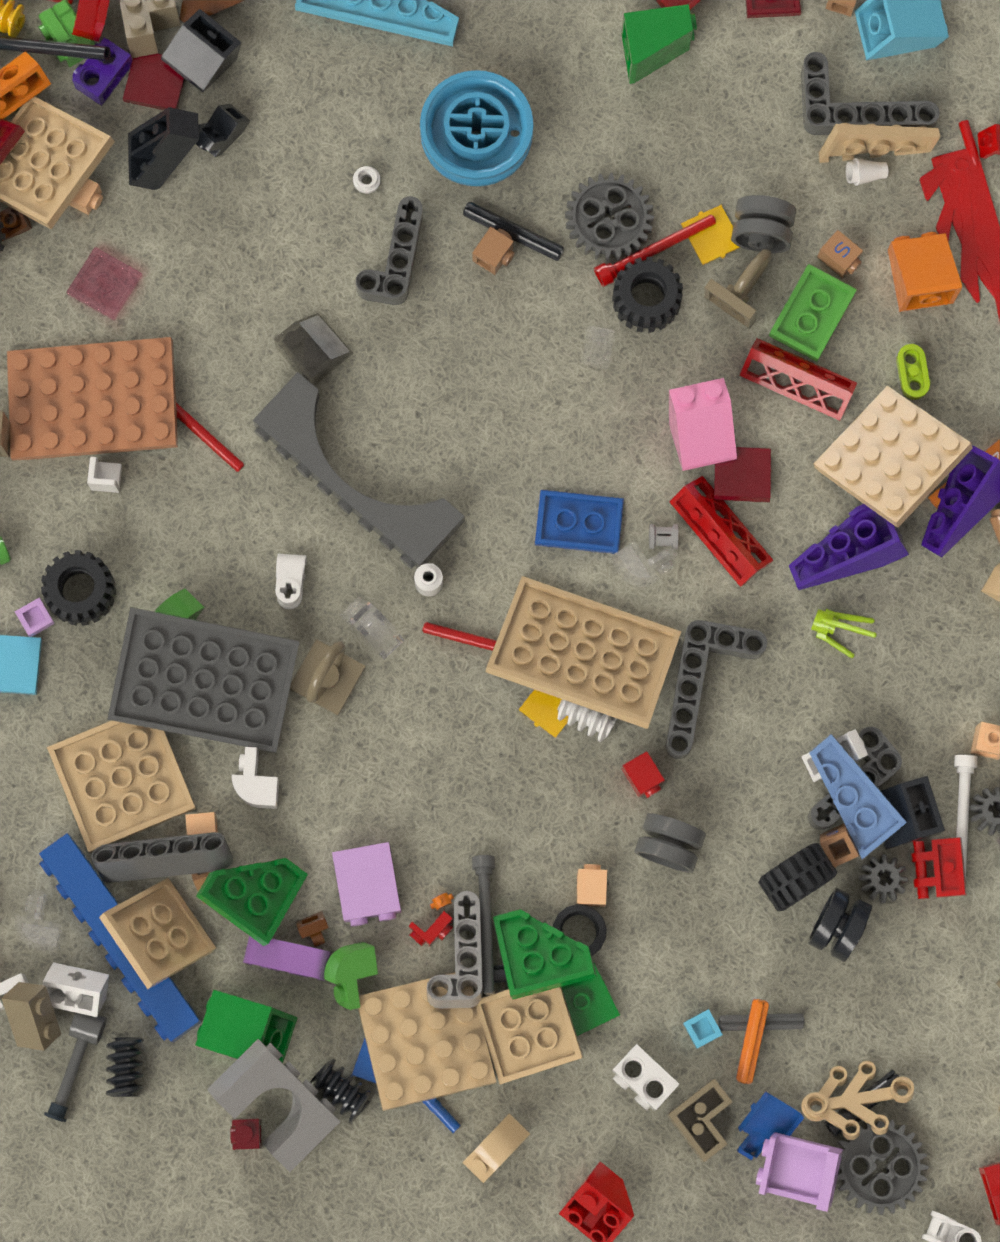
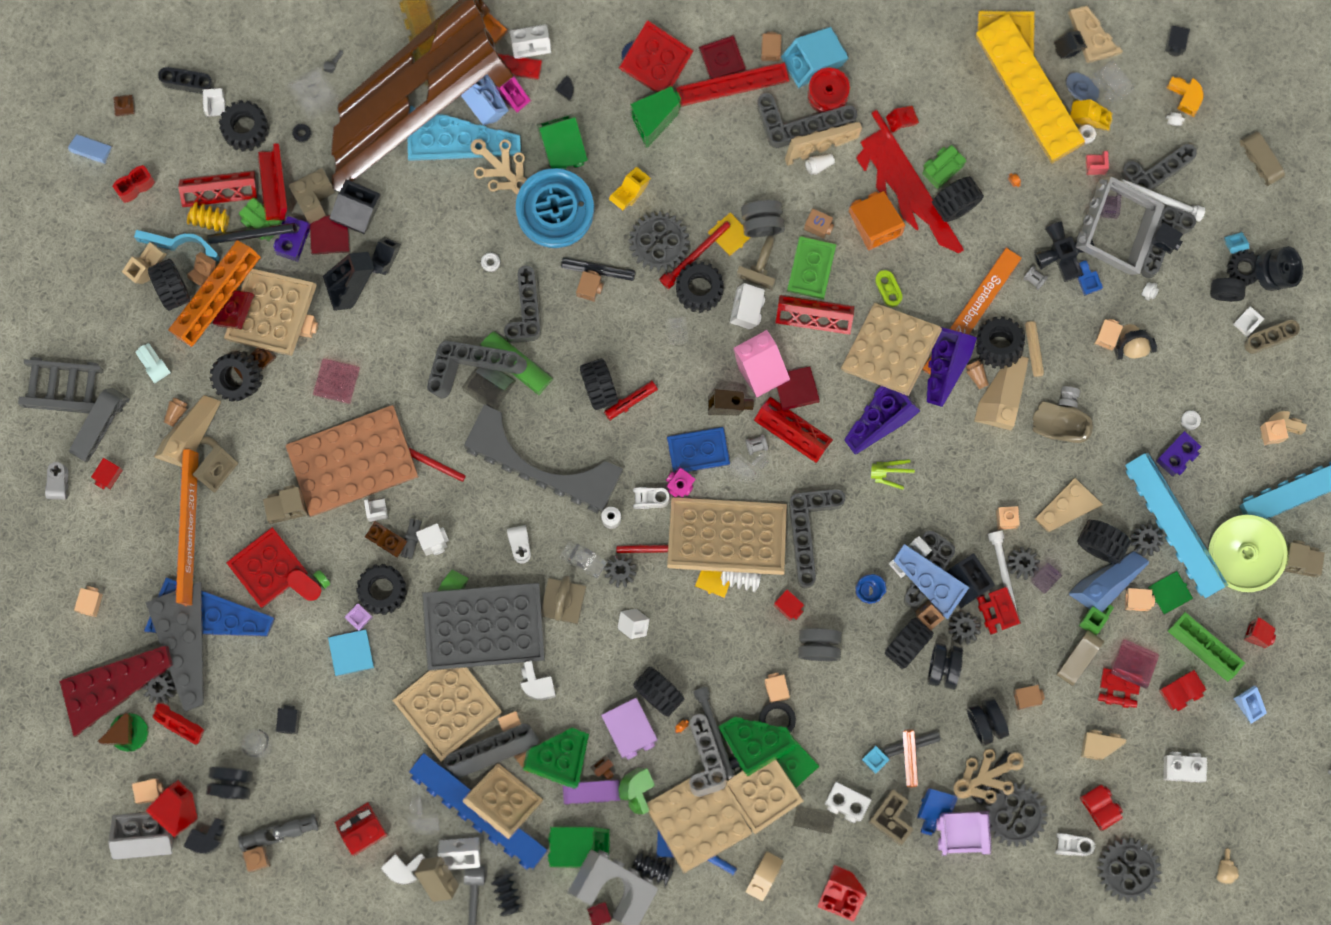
camera: 15 degrees left, 0 degrees up
(106, 520) = (386, 539): none -> reddish brown slope
(141, 529) = (412, 538): none -> dark grey pin
(169, 539) = (433, 539): none -> white brick
(278, 290) = (473, 358): none -> dark grey beam
(360, 327) = (533, 376): none -> bright green brick
(416, 737) = (633, 623): none -> white panel
(417, 667) = (619, 564): none -> dark grey gear
(420, 56) = (502, 169): none -> tan plant
(422, 842) = (658, 691): none -> black tyre
(438, 929) = (685, 745): red bracket -> none
(465, 388) = (598, 384): none -> black tyre
(490, 568) = (649, 498): none -> white piece
(504, 425) = (612, 412): none -> red pin
(515, 43) = (562, 142): none -> green slope
(547, 551) = (680, 475): none -> dark pink brick
(589, 1089) = (813, 820): none -> clear smoke tile
(592, 133) = (631, 189): none -> yellow brick
(631, 462) = (721, 403): none -> dark brown torso
(706, 340) = (747, 306): none -> white brick
(755, 779) = (876, 583): none -> blue hair
(776, 29) = (733, 84): none -> red plate
(878, 1021) = (987, 721): none -> black wheel
(907, 72) = (824, 81): none -> red wheel
(947, 1003) = (1028, 697): none -> medium nougat brick

